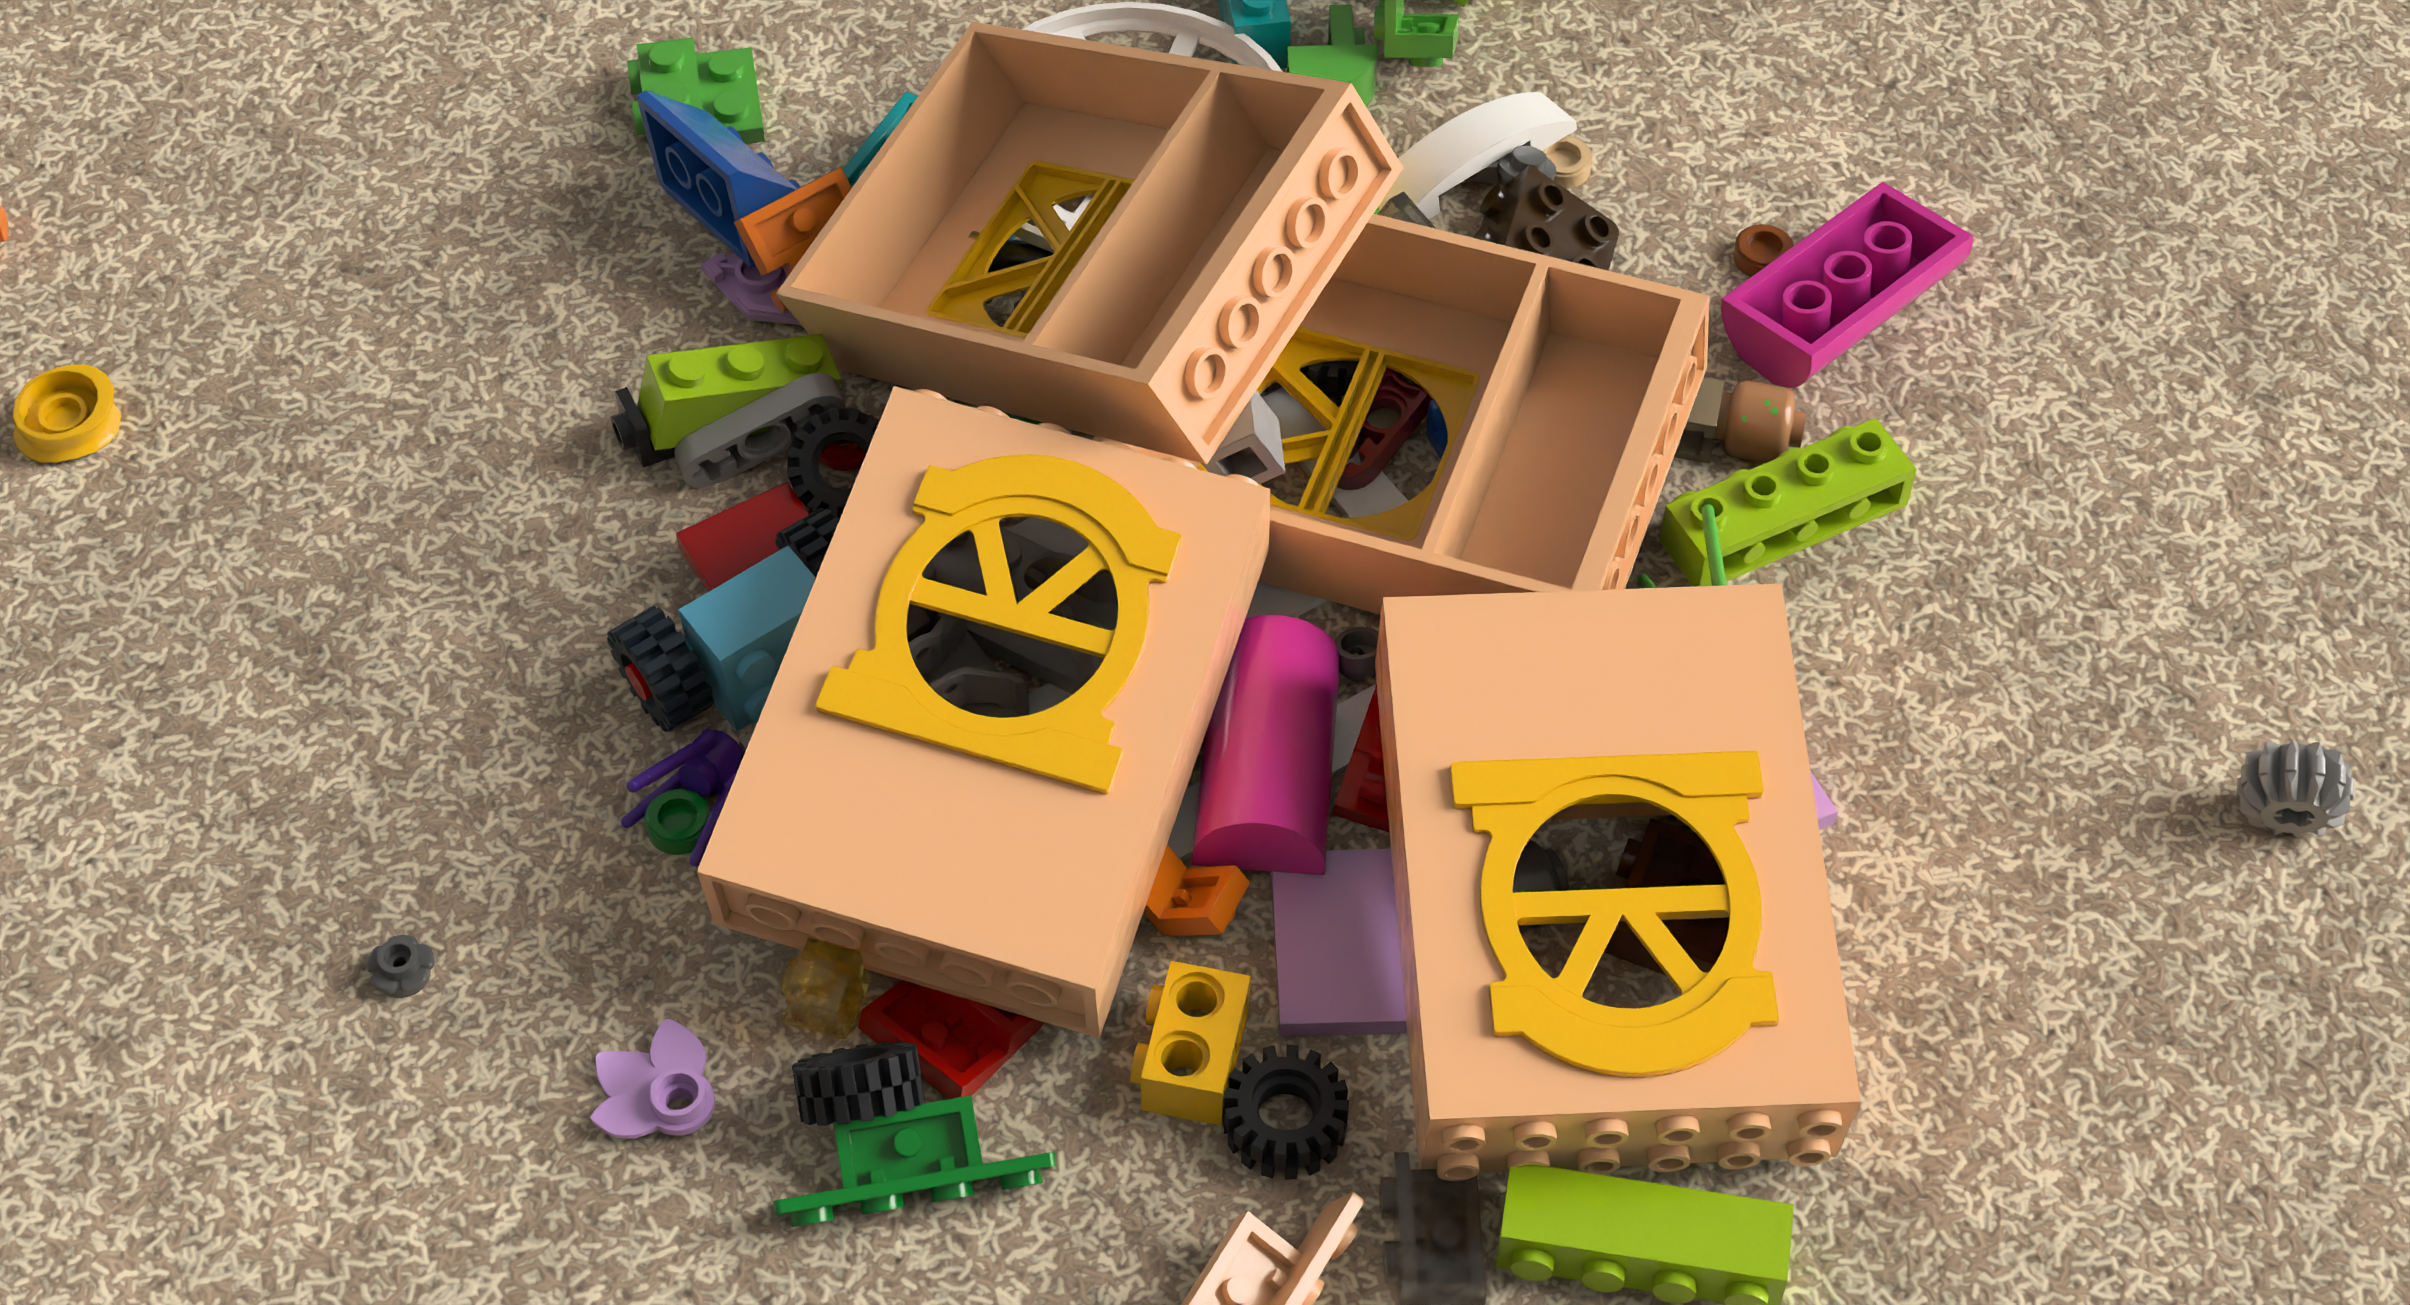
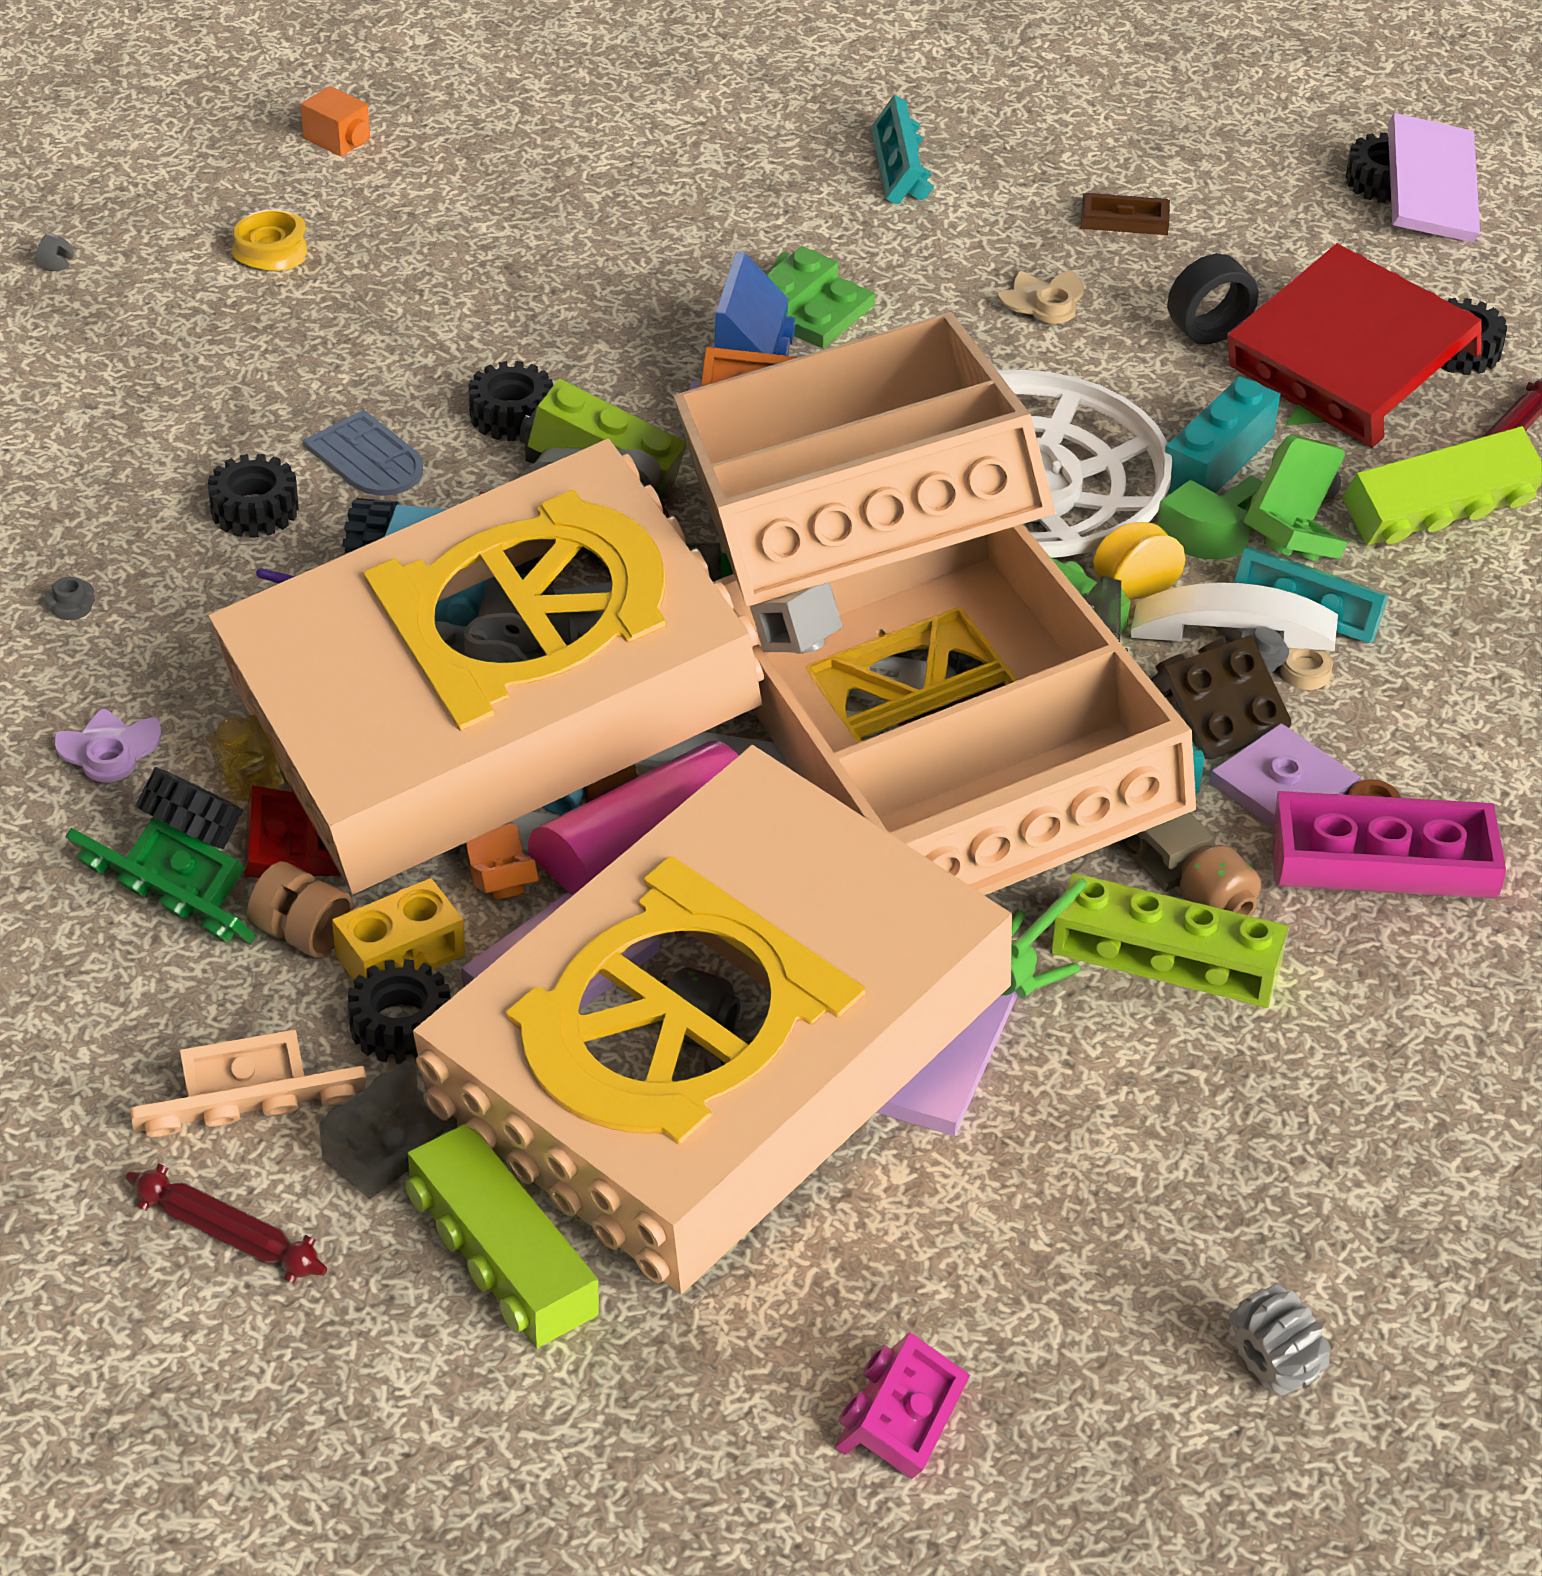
camera: 45 degrees right, 10 degrees down
(433, 681) = (257, 513): none -> black tyre
(483, 578) = (367, 455): none -> sand blue window
(556, 387) = (492, 392): none -> black tyre
(1104, 1086) = (297, 908): none -> medium nougat wheel
(1454, 91) = (1356, 605): none -> teal plate
(1683, 261) = (1279, 763): none -> lavender plate
(2106, 1096) = (903, 1404): none -> dark pink bracket

